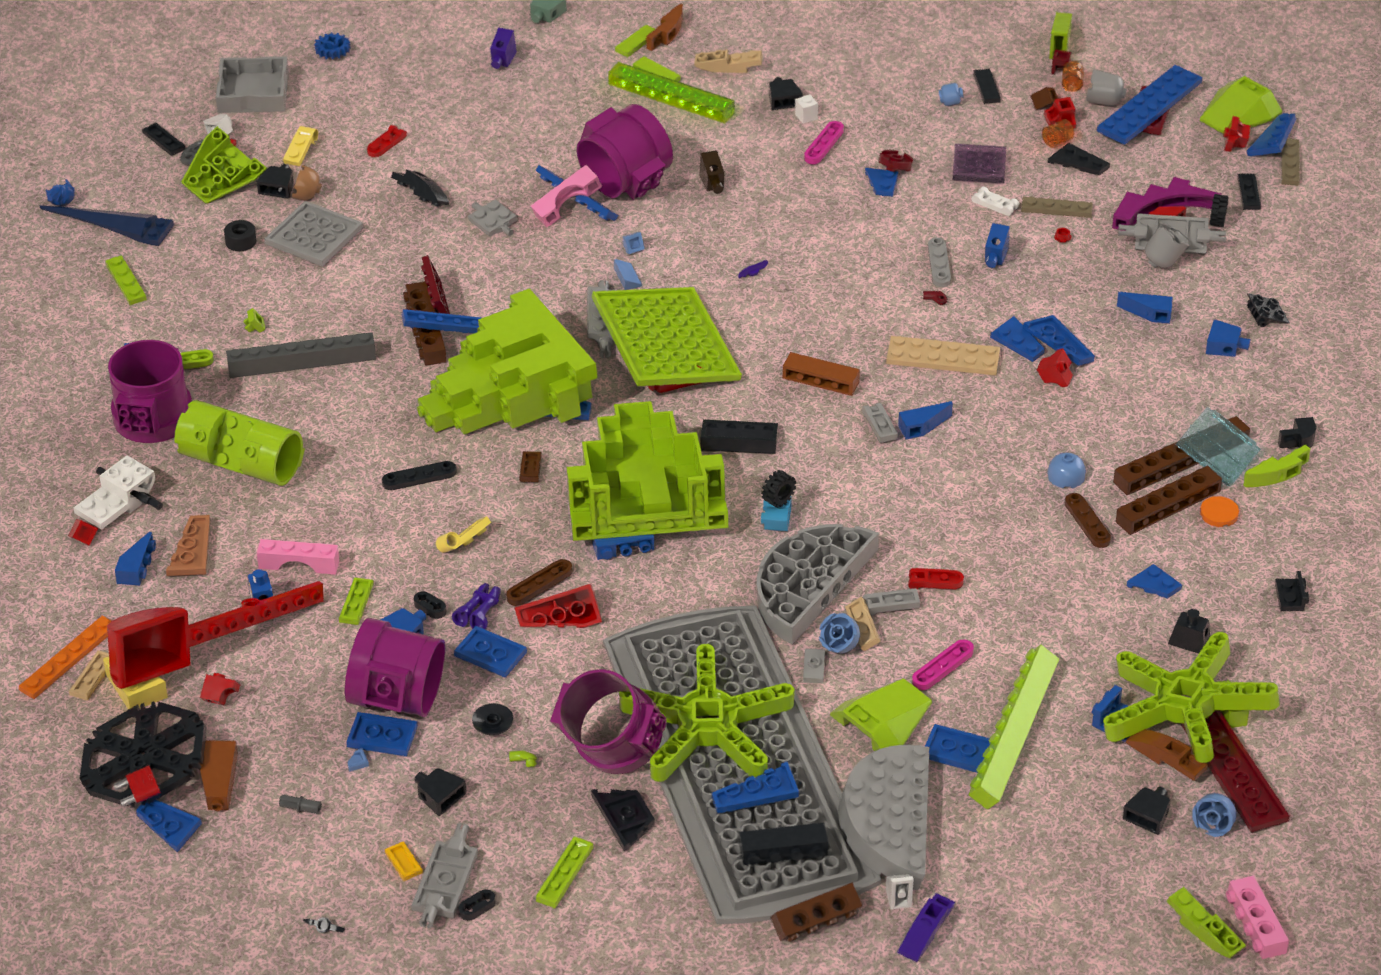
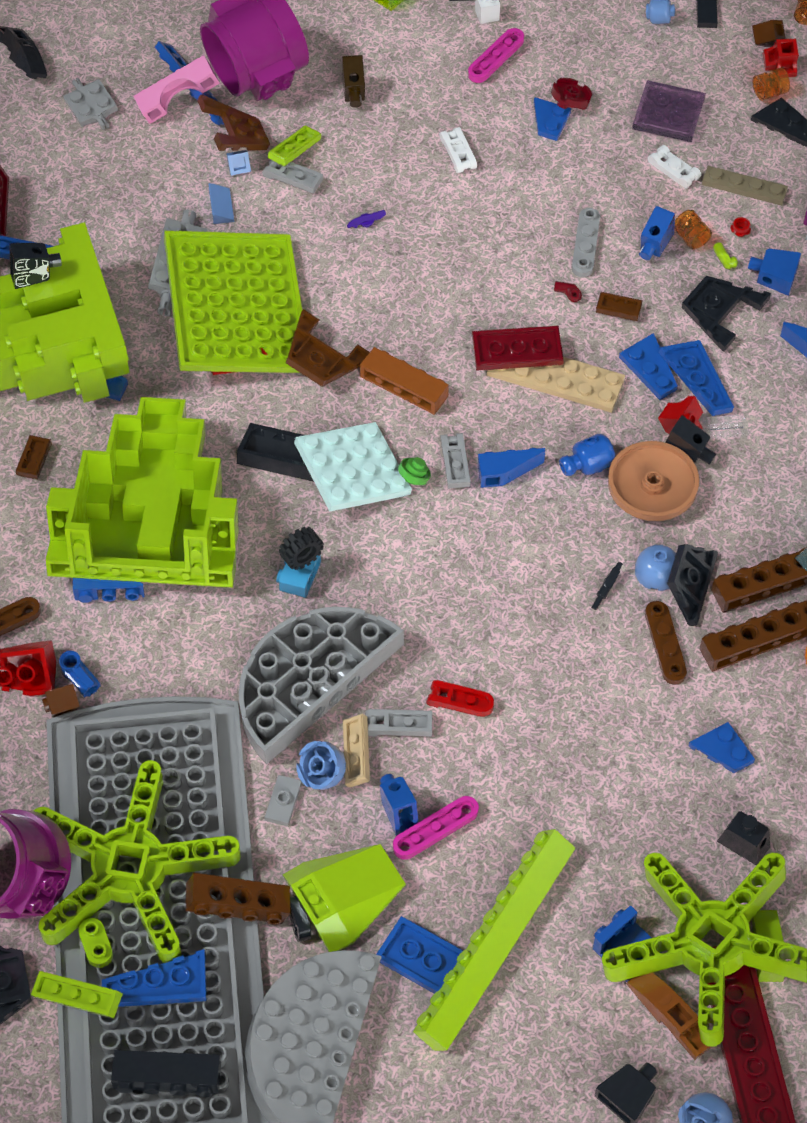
camera: 10 degrees right, 15 degrees up
(498, 317) = (31, 263): none -> black torso
(612, 622) = (61, 700): none -> reddish brown brick
(615, 603) = (79, 674): none -> blue piece
(626, 216) = (243, 129): none -> reddish brown wing
(676, 225) = (294, 145): none -> lime tile
(681, 245) = (294, 175): none -> light grey plate
(694, 805) = (76, 994): none -> lime plate
(696, 773) = (95, 941): none -> lime plate
(745, 366) = (318, 359): none -> reddish brown wing
(798, 435) = (352, 466): none -> light aqua plate
(802, 726) = (226, 889): none -> reddish brown brick
(813, 211) = (458, 149): none -> white plate
(849, 432) = (414, 471): none -> bright green plate
(853, 738) = (299, 920): none -> black beam
(907, 338) = (517, 348): none -> dark red tile
(909, 650) = (397, 796): none -> blue torso
(980, 301) = (619, 306): none -> reddish brown plate
(989, 403) = (589, 456): none -> blue piece
(1024, 240) = (692, 229): none -> clear orange wheel
(1029, 488) = (607, 585): none -> black hand
(1045, 412) = (653, 481): none -> nougat dish
(1055, 257) = (721, 253): none -> lime arm
(1057, 287) = (714, 301): none -> black wing
(1066, 383) = (691, 440): none -> black torso
(1091, 372) = (726, 423): none -> clear tile
(1096, 473) = (691, 579): none -> black wing
(1100, 260) = (776, 269): none -> blue torso

